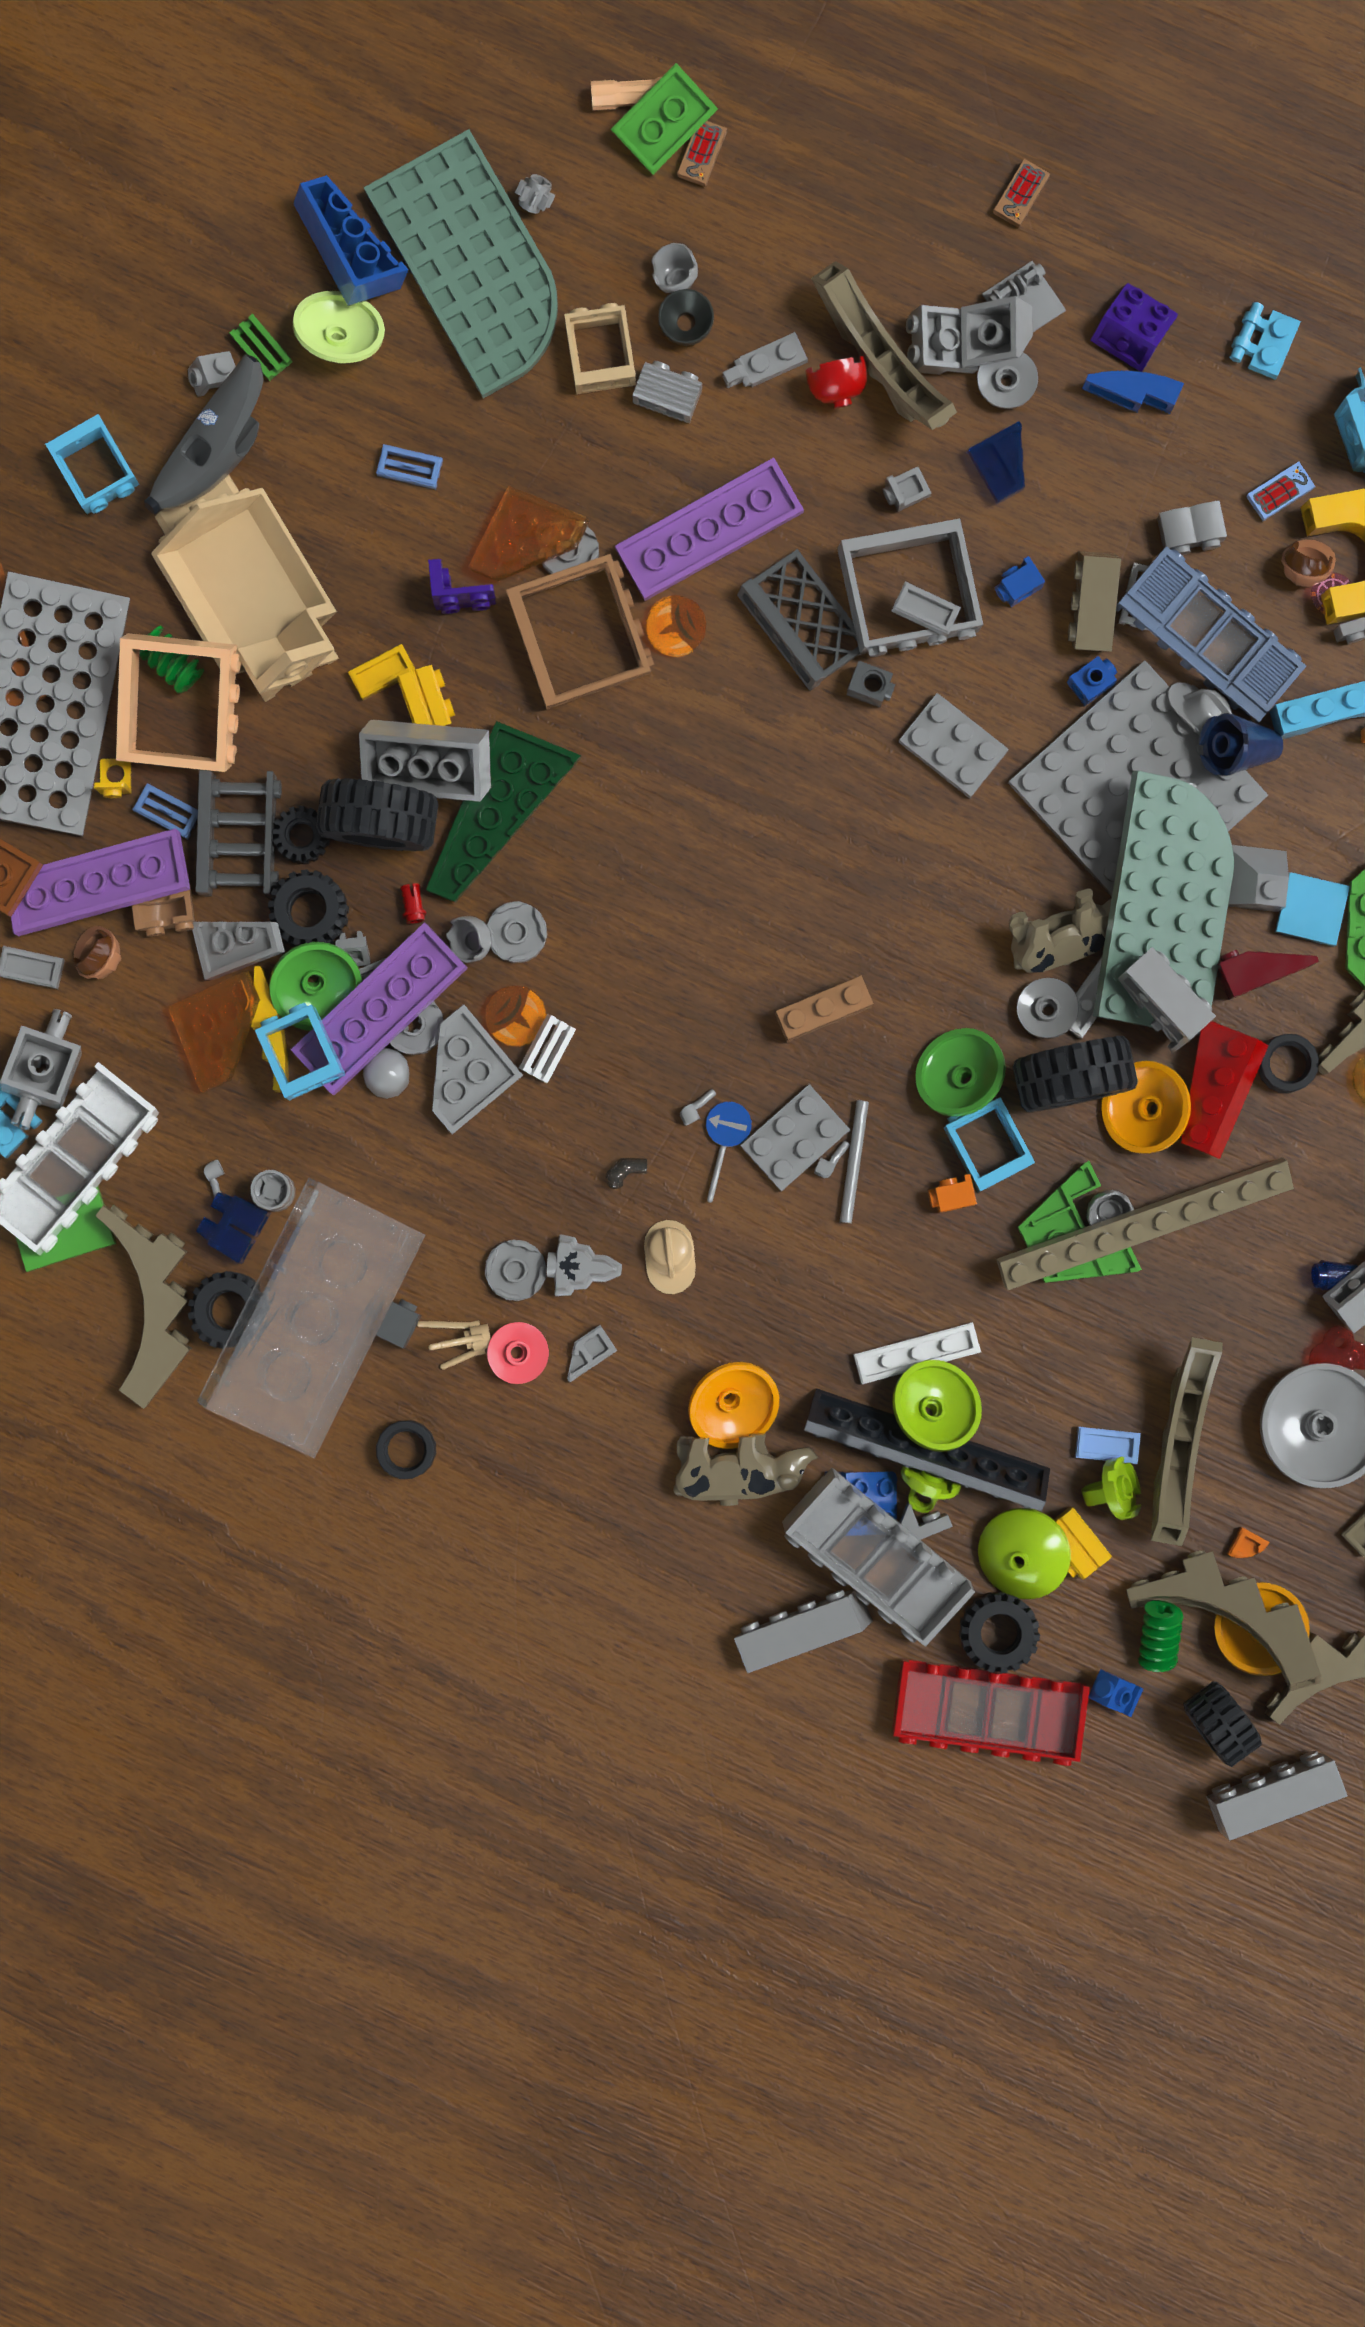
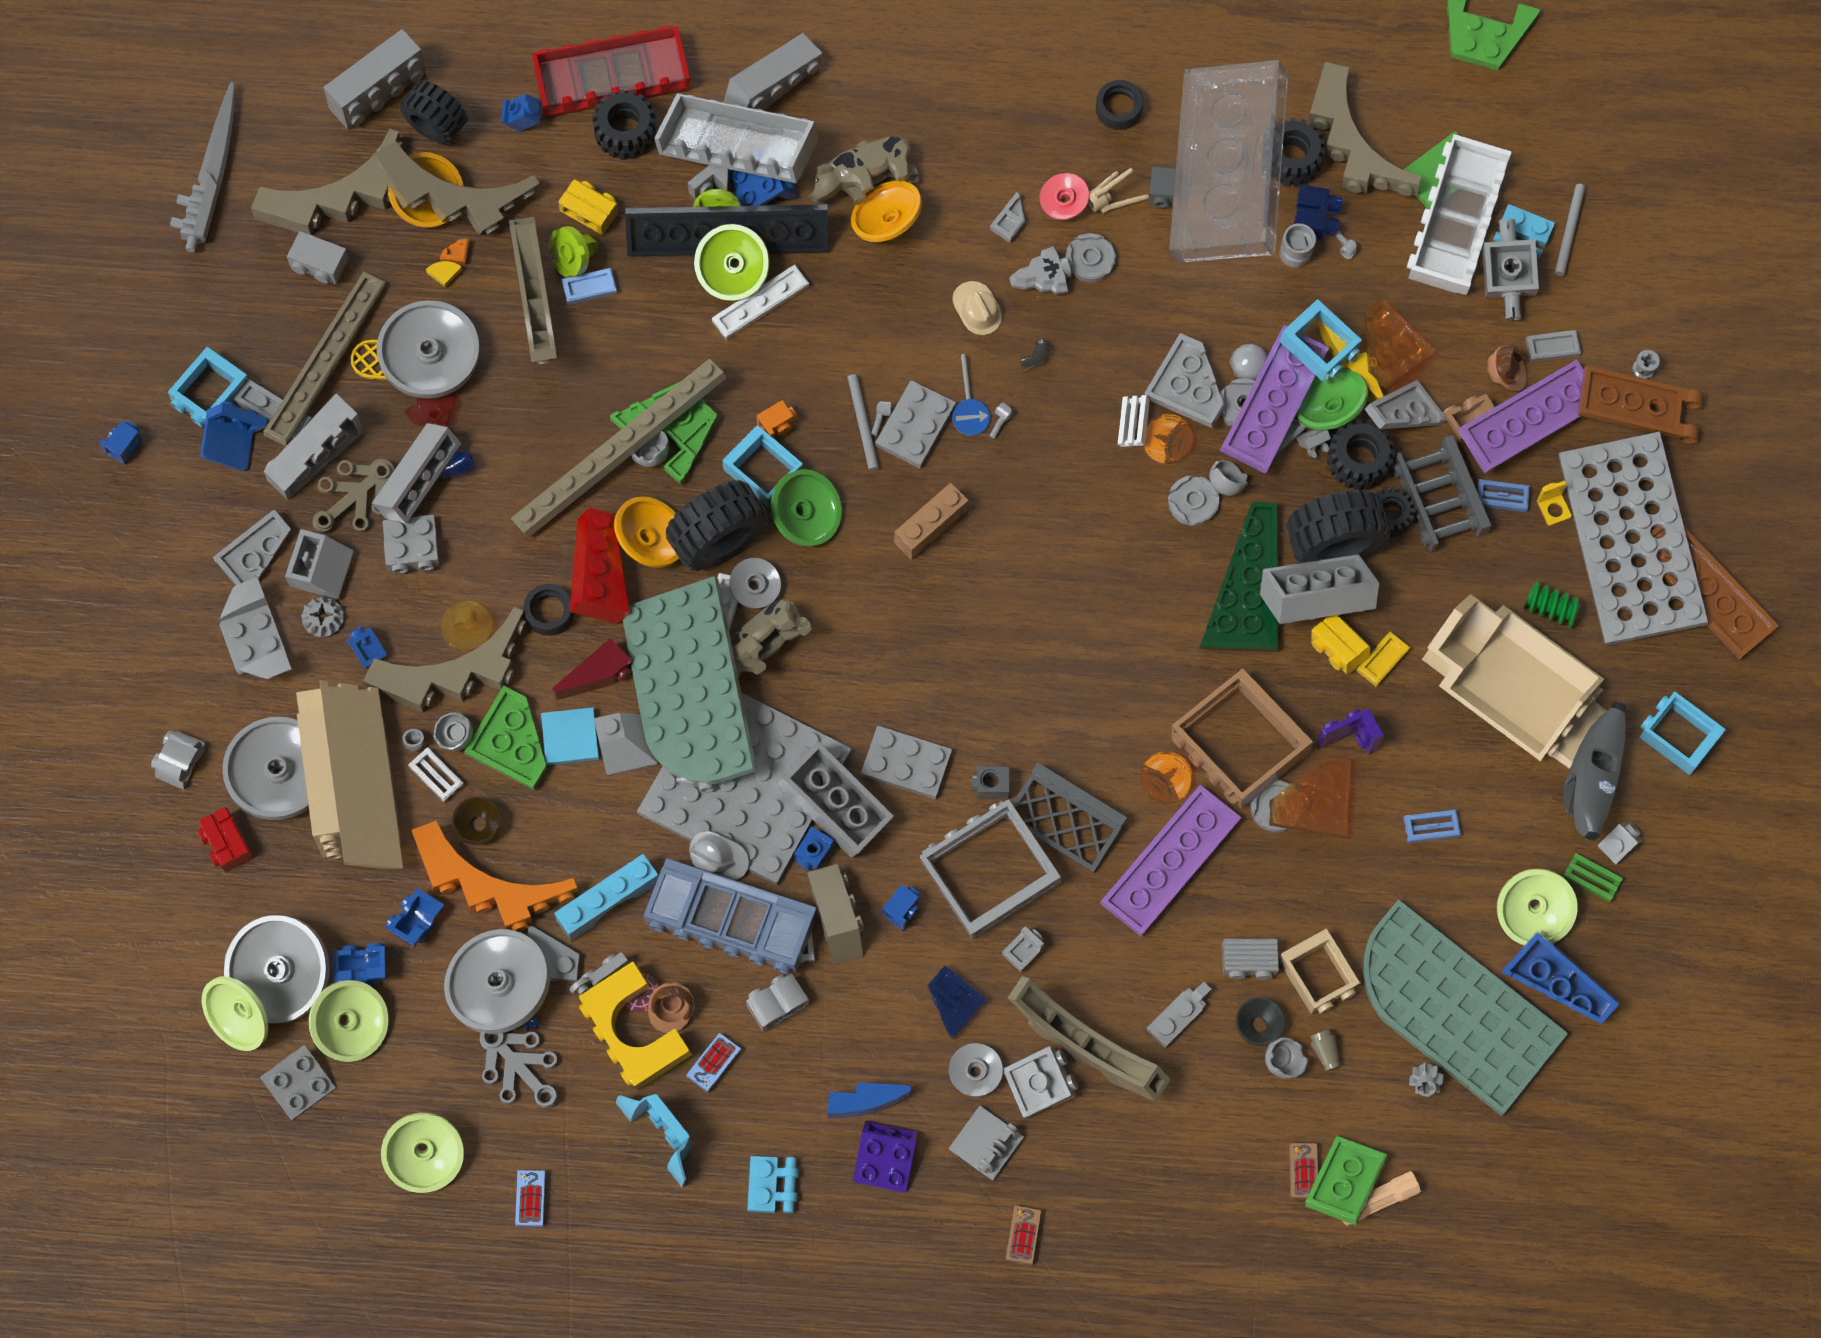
camera: 155 degrees right, 15 degrees down
(128, 701) = (1539, 601): light nougat window -> none
(412, 904) = (1282, 490): red pin -> none
(626, 268) = (1326, 1049): none -> dark tan cone
(838, 381) = (1115, 1012): red cylinder -> none
(926, 609) = (970, 847): light grey tile -> none
(995, 331) = (999, 1097): light grey slope -> none
(1033, 1538) = (625, 183): lime dish -> none
(1054, 717) = (834, 799): none -> light grey brick
(1160, 1636) = (501, 160): green piece -> none
(1167, 998) = (665, 603): light grey wedge -> none
(1237, 744) = (675, 830): dark blue cone -> none
(1269, 1523) = (444, 272): none -> yellow tile

